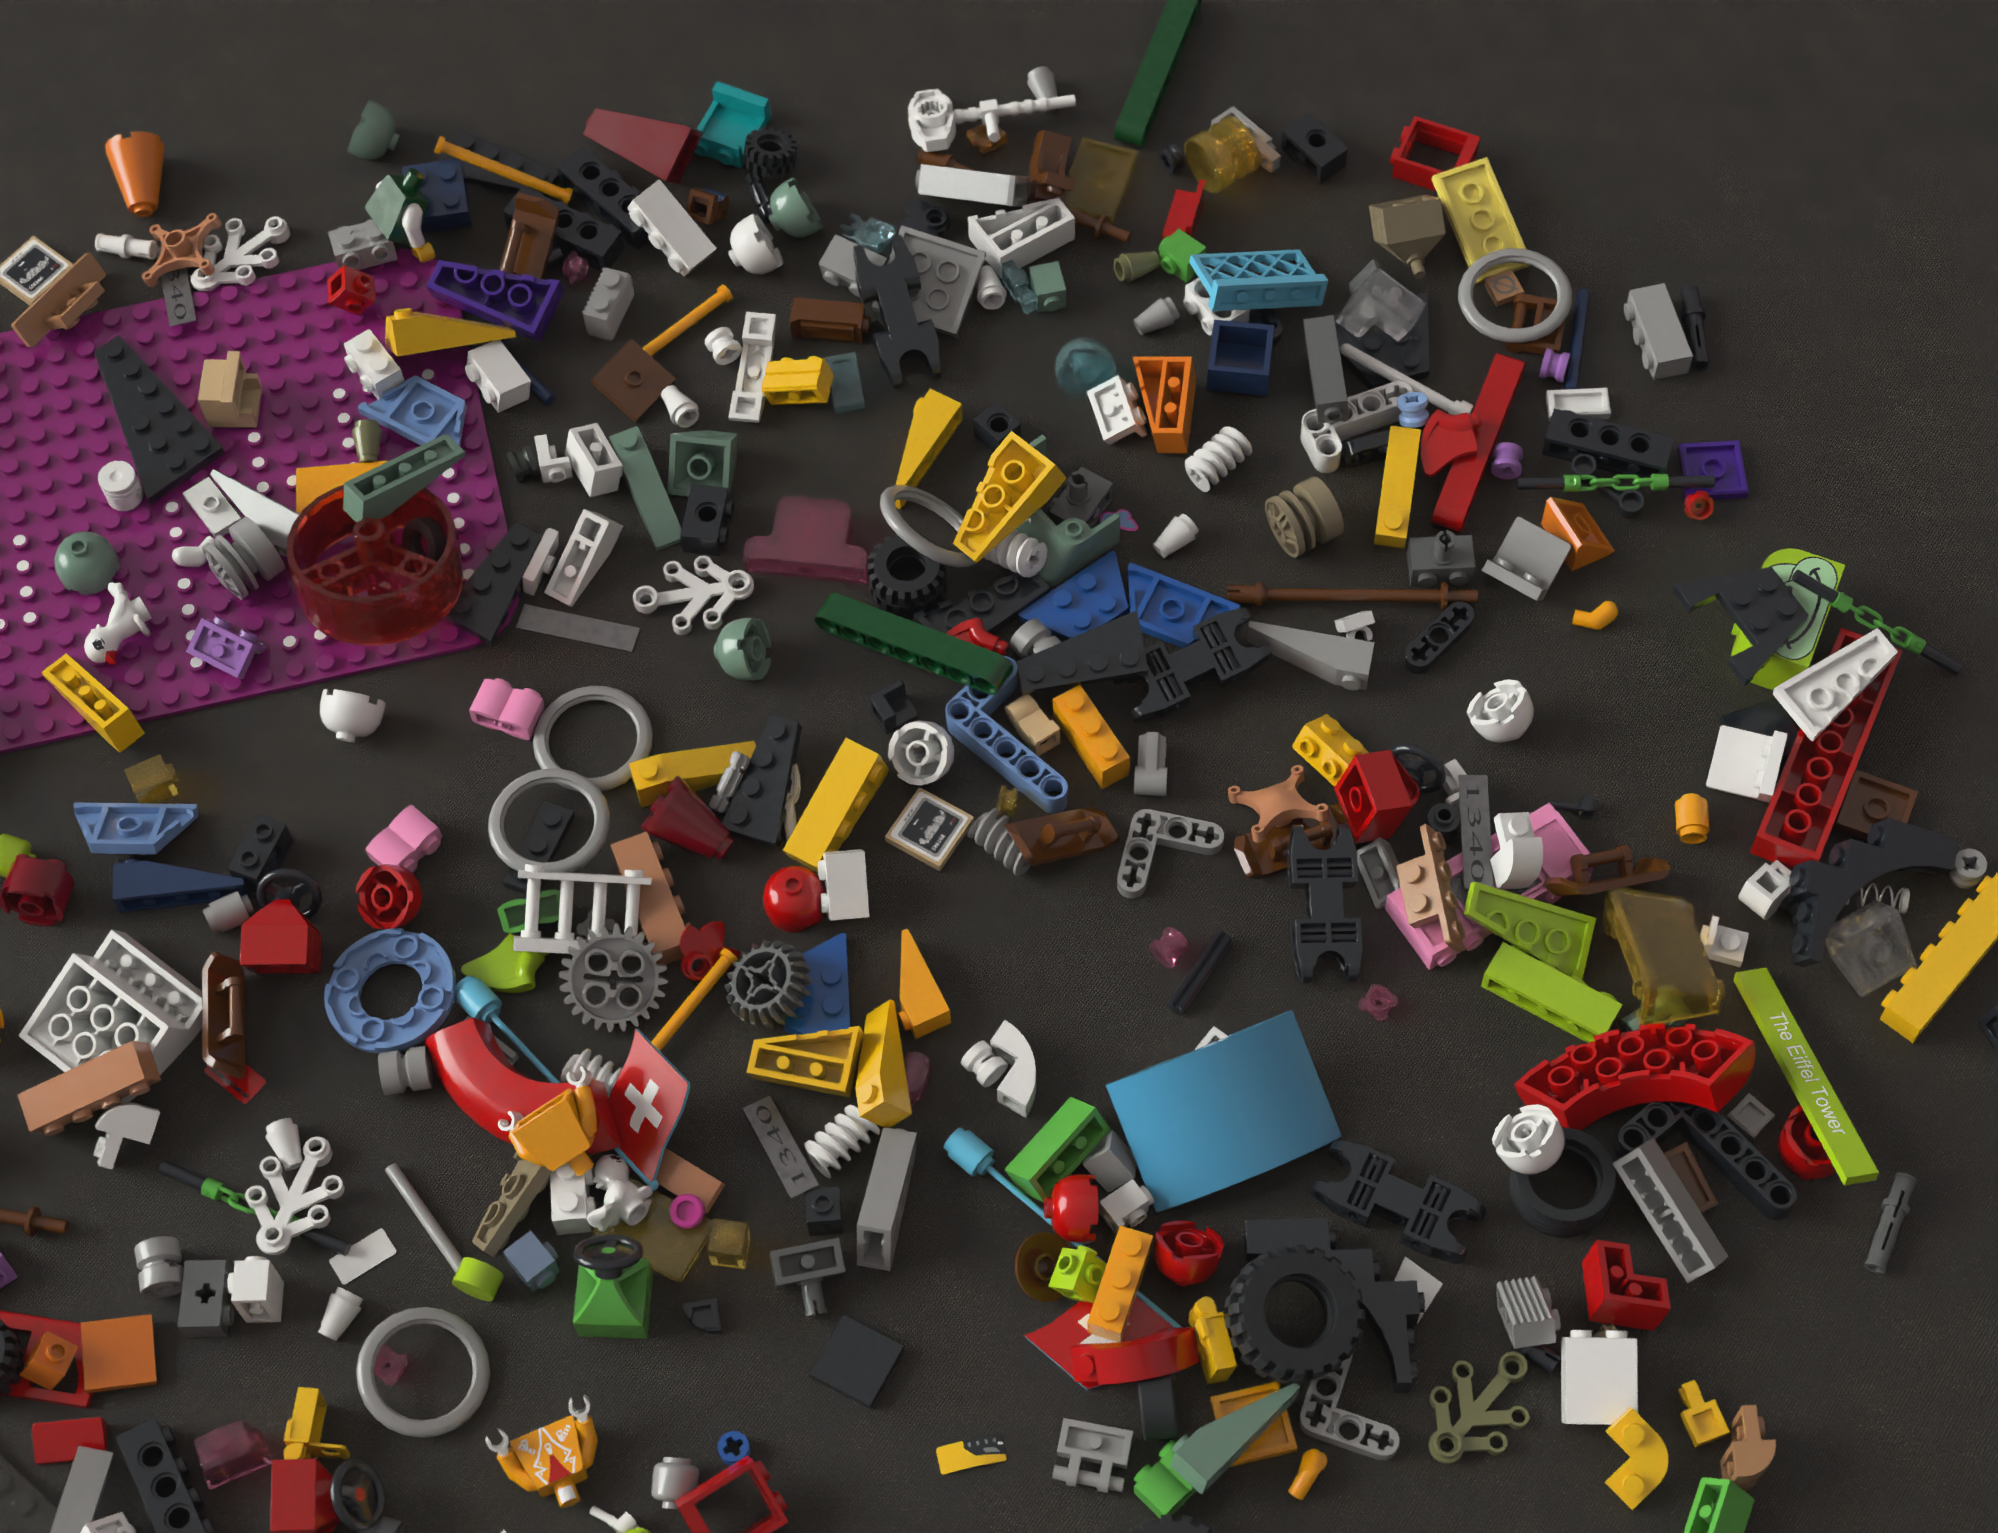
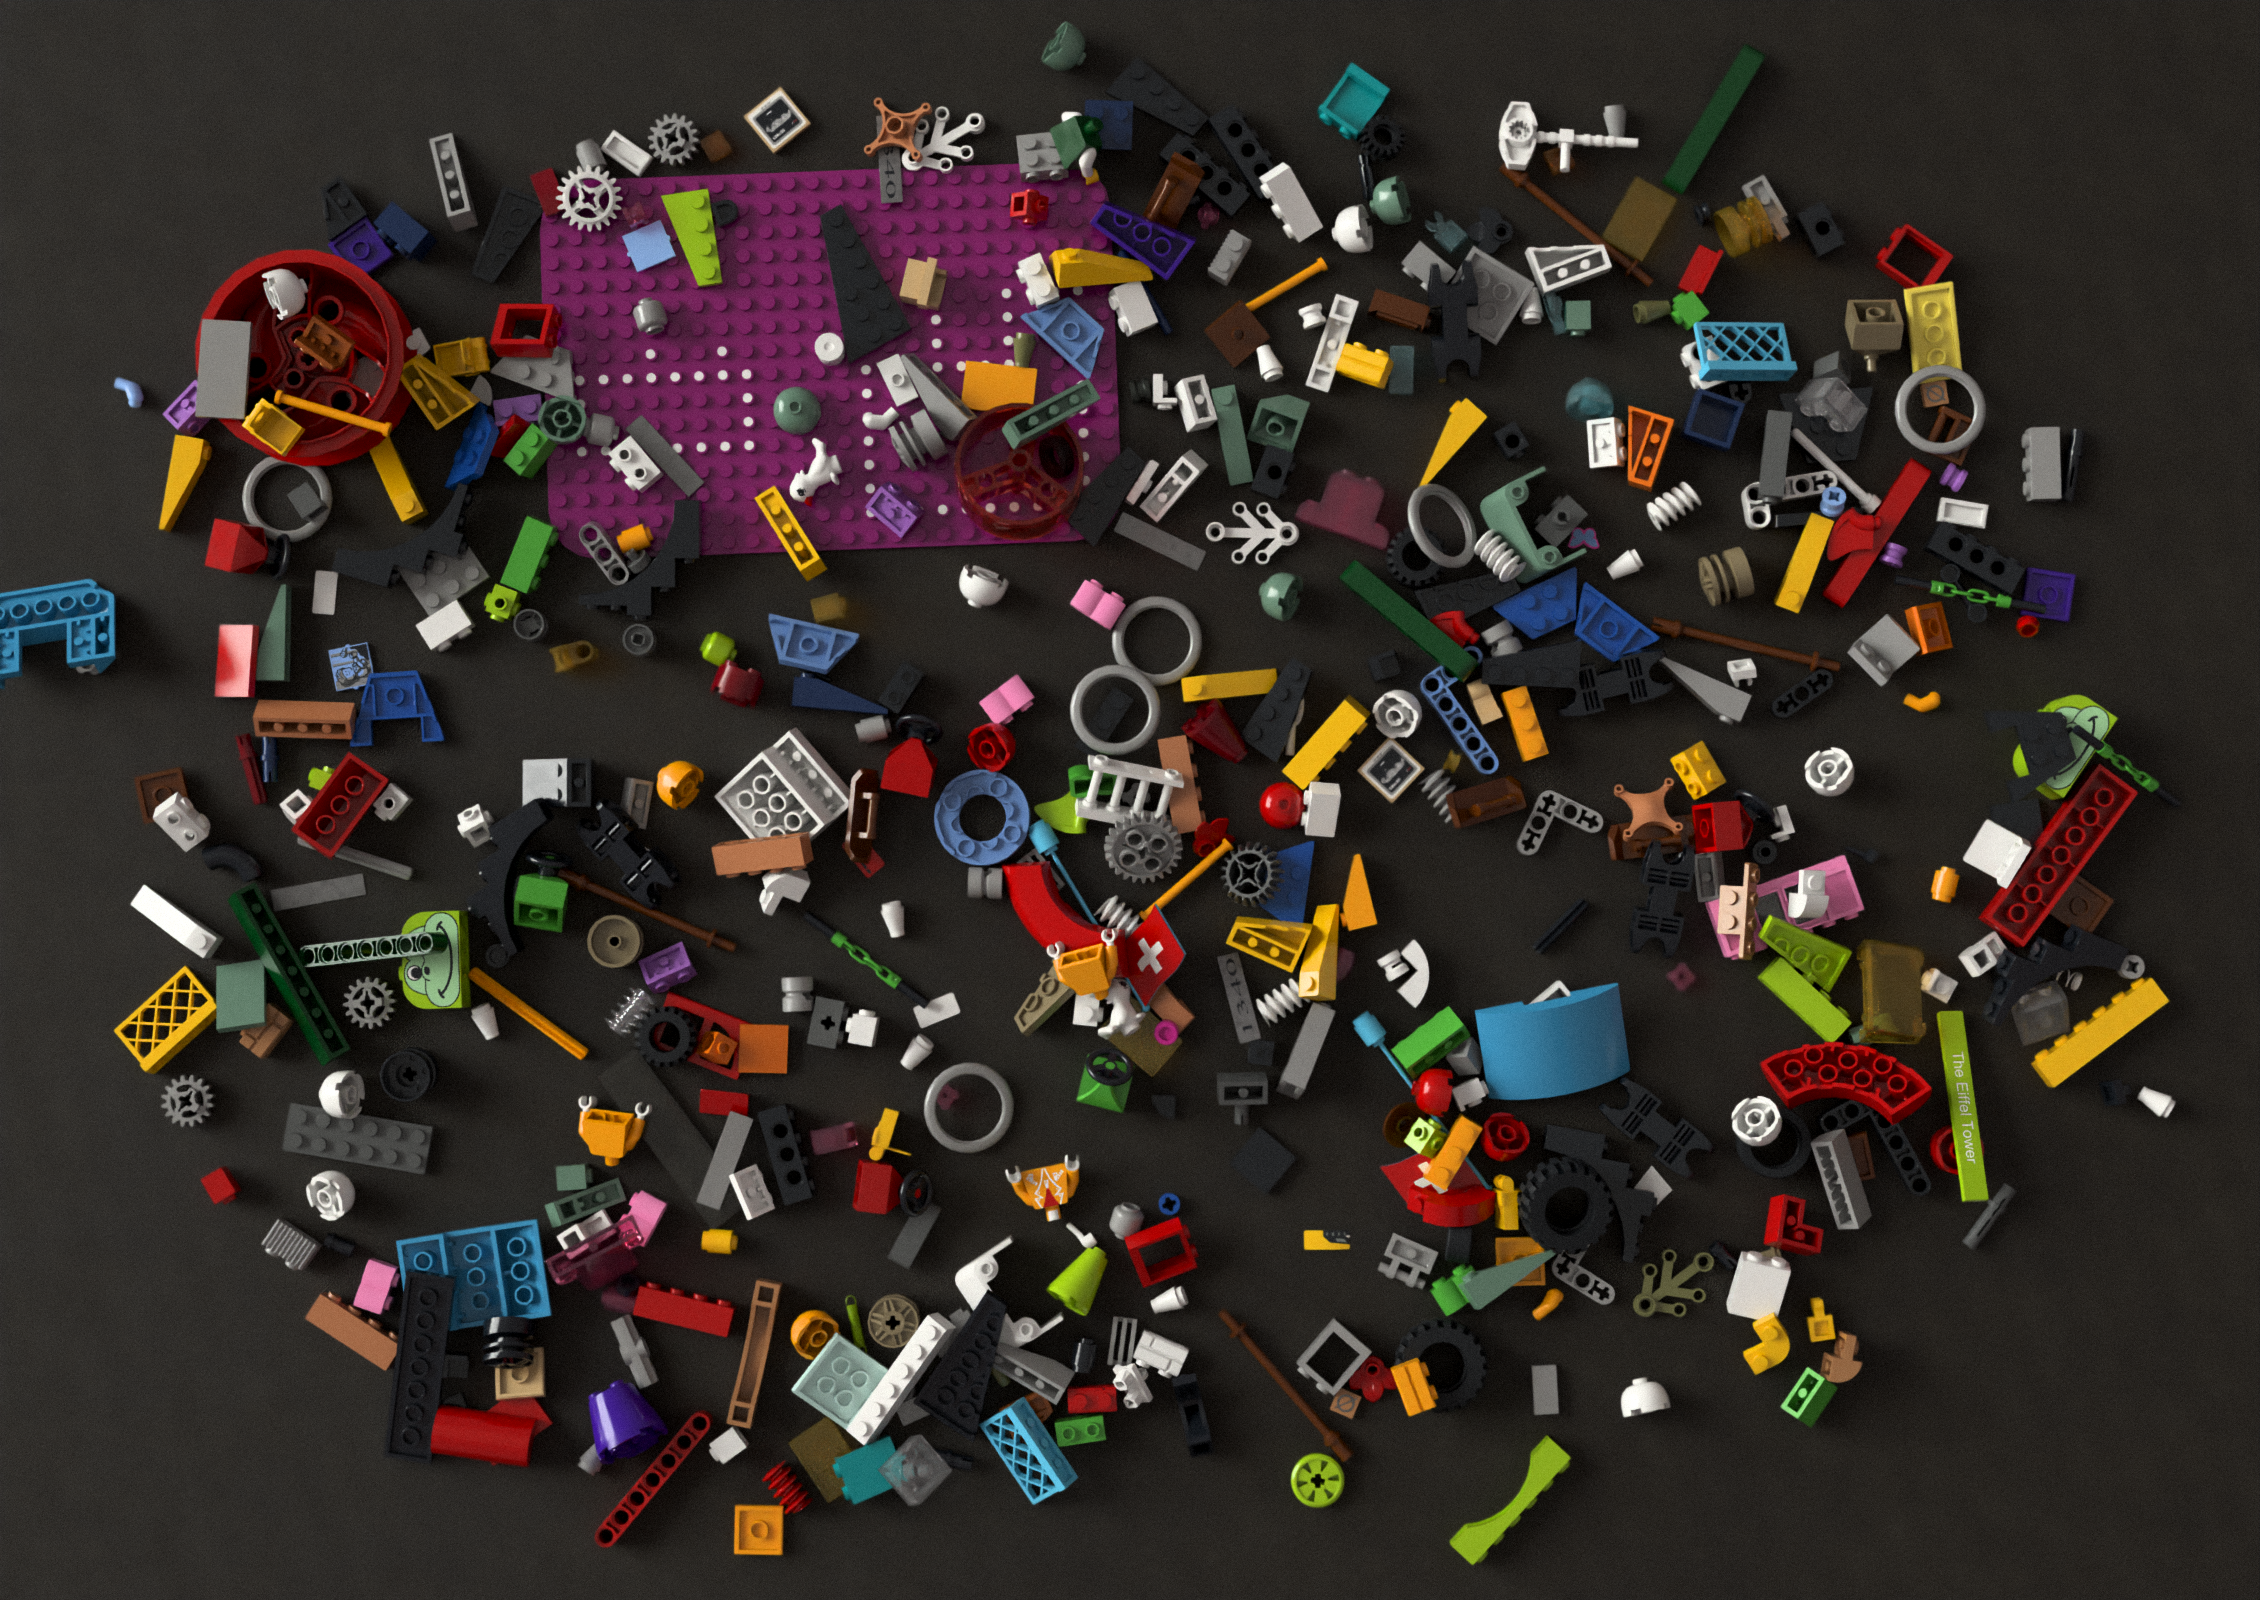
camera: 10 degrees right, 25 degrees up
(62, 302) = (802, 163): medium nougat bracket -> none
(126, 246) = (853, 113): white pin -> none
(138, 169) = (871, 48): orange cone -> none
(294, 1199) = (893, 963): white plant -> none
(424, 1216) = (984, 993): light grey bar -> none
(478, 1279) = (1015, 1049): lime piece -> none
(503, 170) = (1121, 92): light orange bar -> none
(533, 1261) = (1054, 1044): sand blue brick -> none
(649, 143) = (1282, 107): dark red slope -> none
(707, 205) = (1323, 182): reddish brown leg -> none
(729, 782) = (1252, 703): light grey axle -> none
(729, 1243) = (1191, 1061): clear yellow brick -> none
(972, 185) = (1538, 213): slope -> none
(1012, 491) = (1509, 516): yellow wedge -> none
(1048, 166) = (1600, 208): reddish brown arch -> none
(1151, 770) = (1561, 761): light grey piece -> none
(1157, 316) = (1656, 363): light grey cone -> none
(1169, 947) = (1543, 904): clear pink wheel -> none
(1441, 560) = (1819, 631): dark grey brick -> none
(1475, 829) = (1785, 866): flat silver sticker -> none
(1527, 1312) = (1723, 1230): light grey brick -> none
(1577, 339) = (1978, 454): dark blue bar -> none
(1645, 871) = (1886, 926): reddish brown piece -> none
(1750, 1117) = (1918, 1120): light grey tile -> none
(1828, 687) = (2070, 816): white wing -> none

